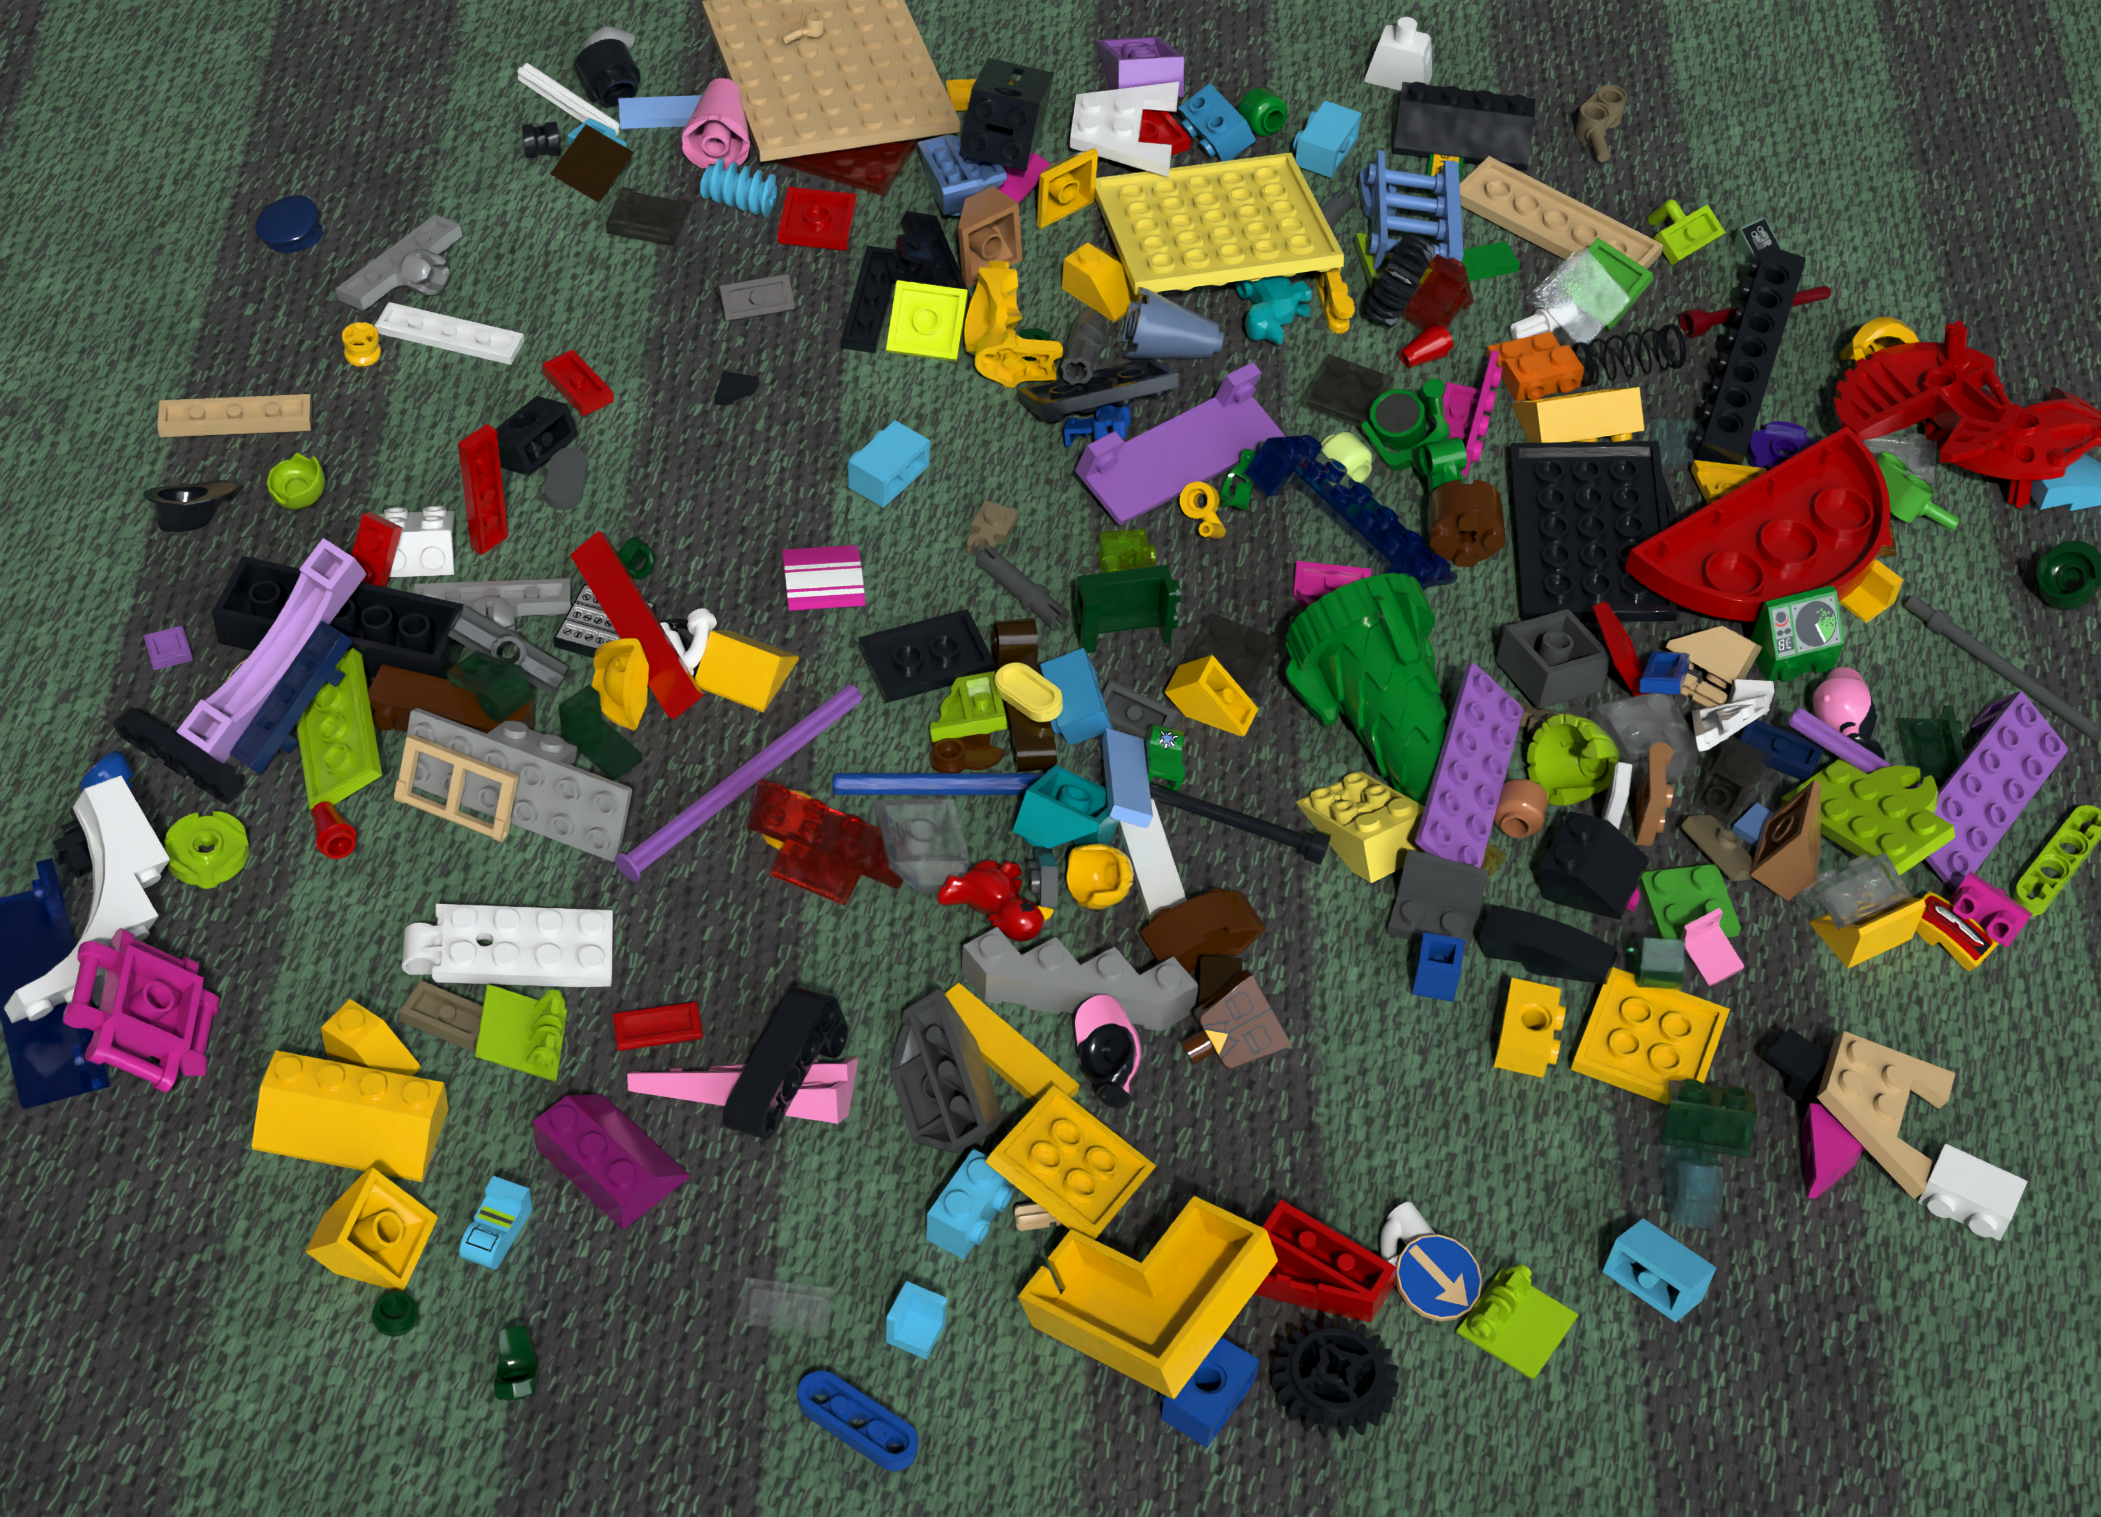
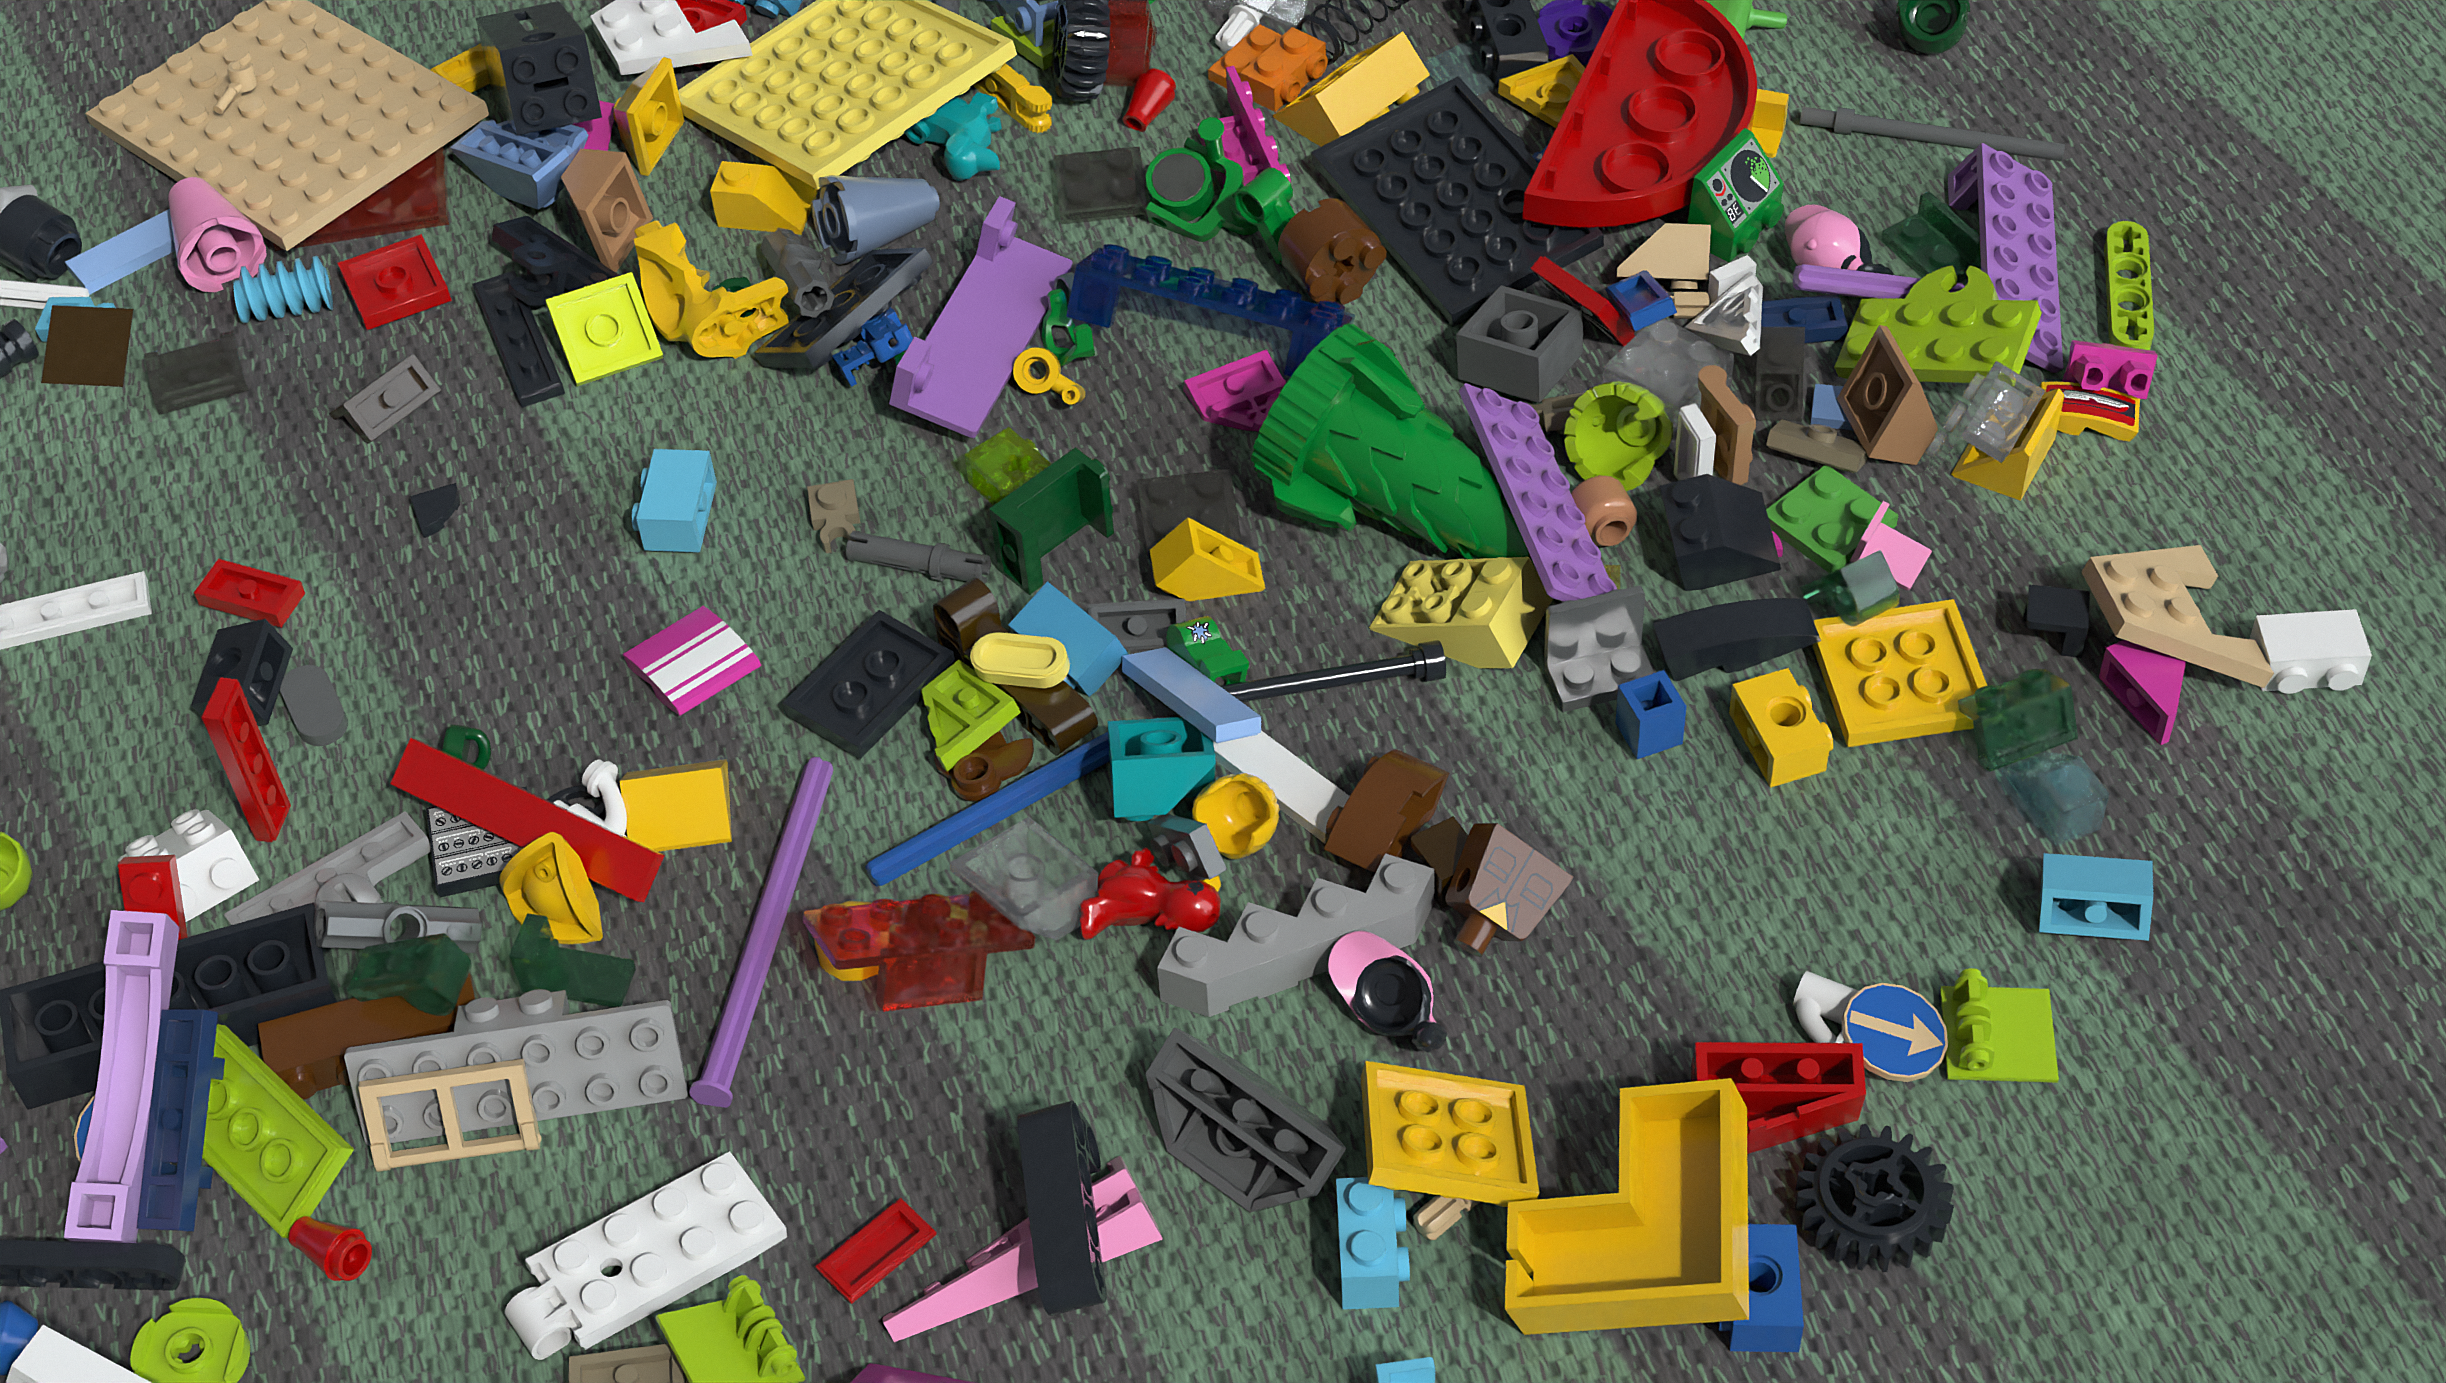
camera: 25 degrees left, 0 degrees up
(1009, 1051) = (1284, 1056): yellow tile -> none
(1350, 452) = (1156, 240): yellowish green head -> none

